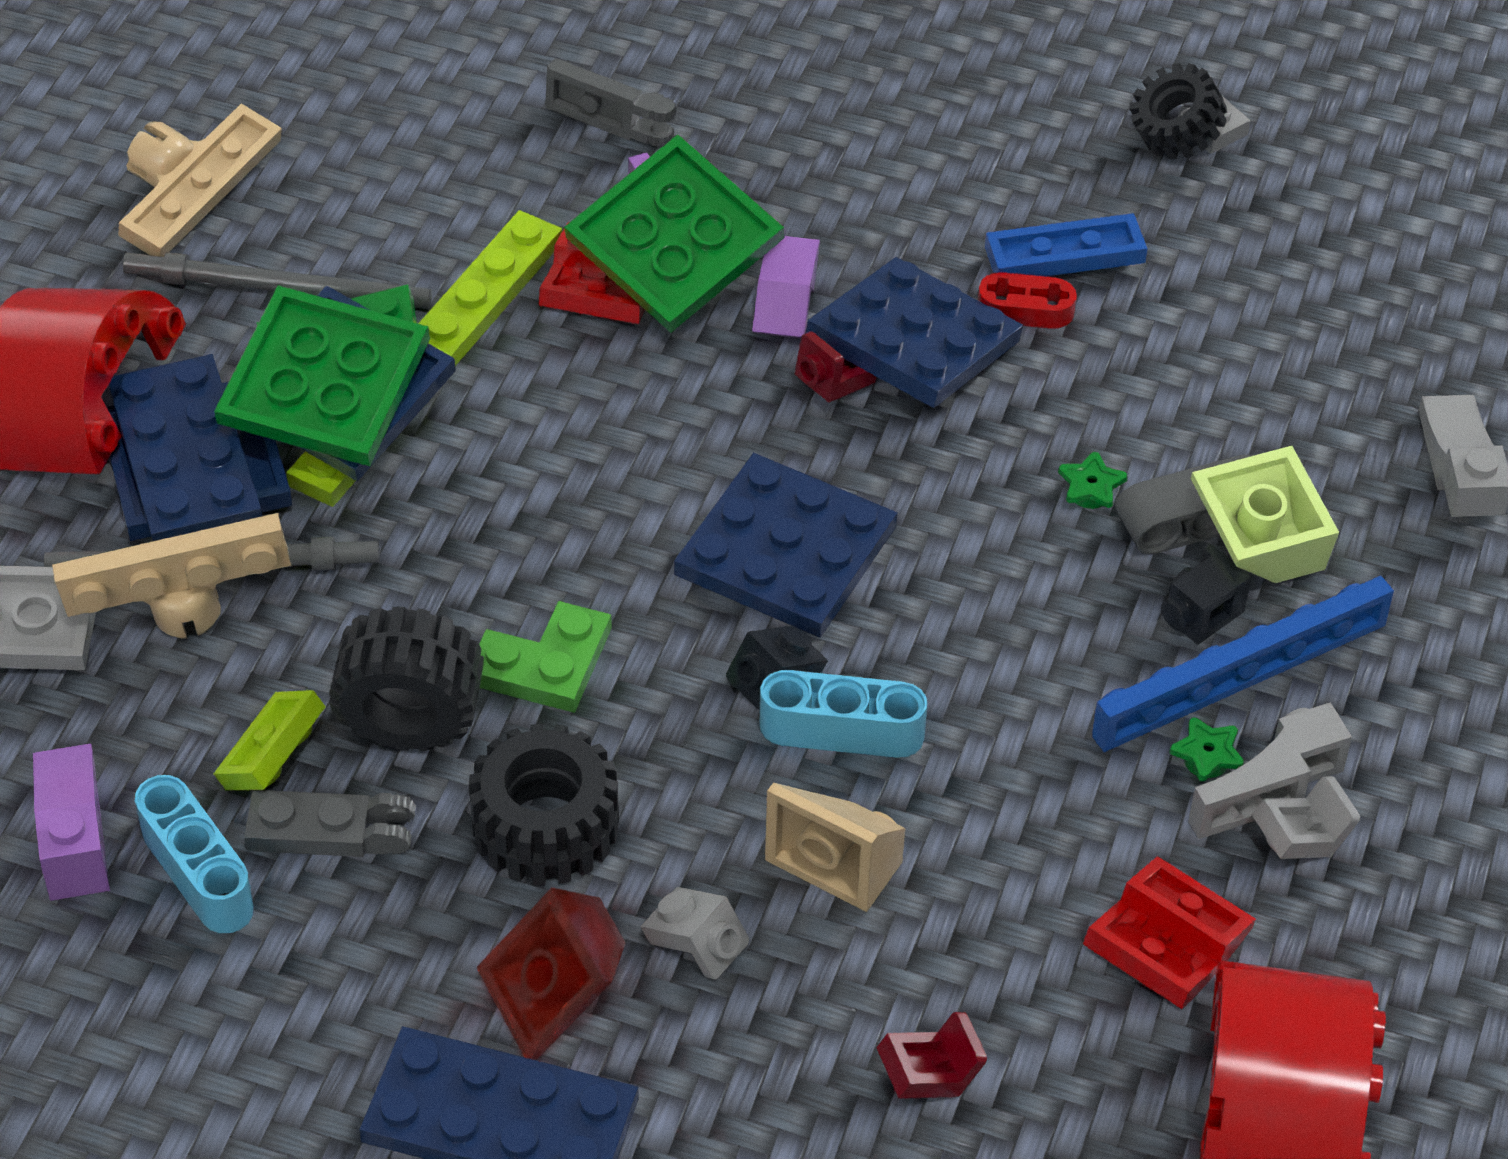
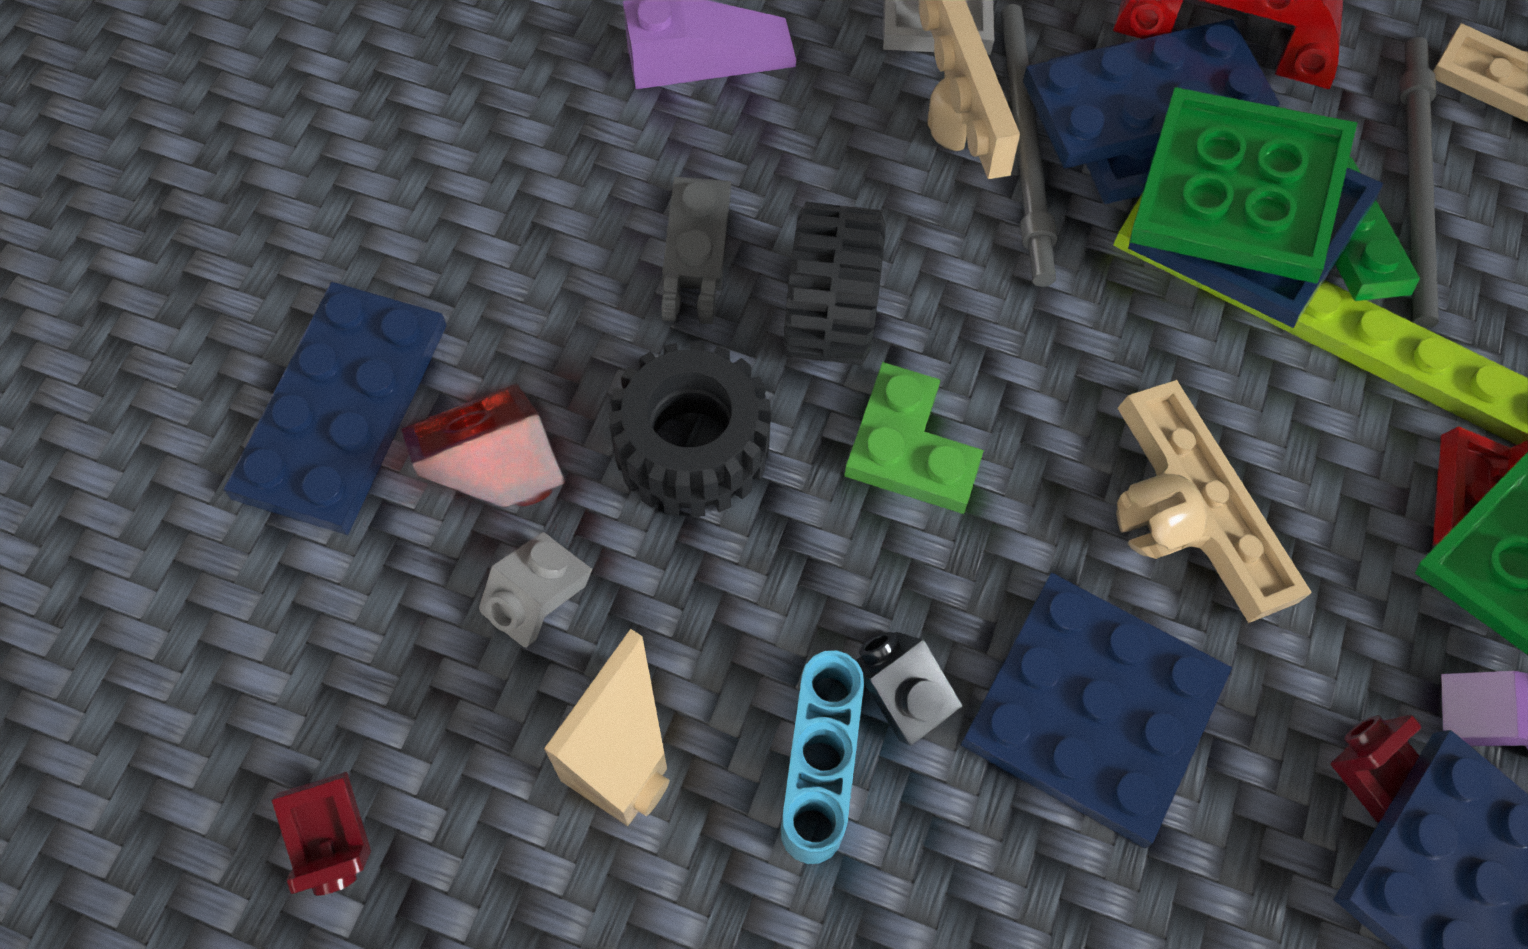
camera: 90 degrees right, 15 degrees up
(175, 829) = (652, 135): medium azure beam -> none
(270, 740) = (777, 185): lime plate -> none
(608, 458) = (1202, 505): none -> tan plate

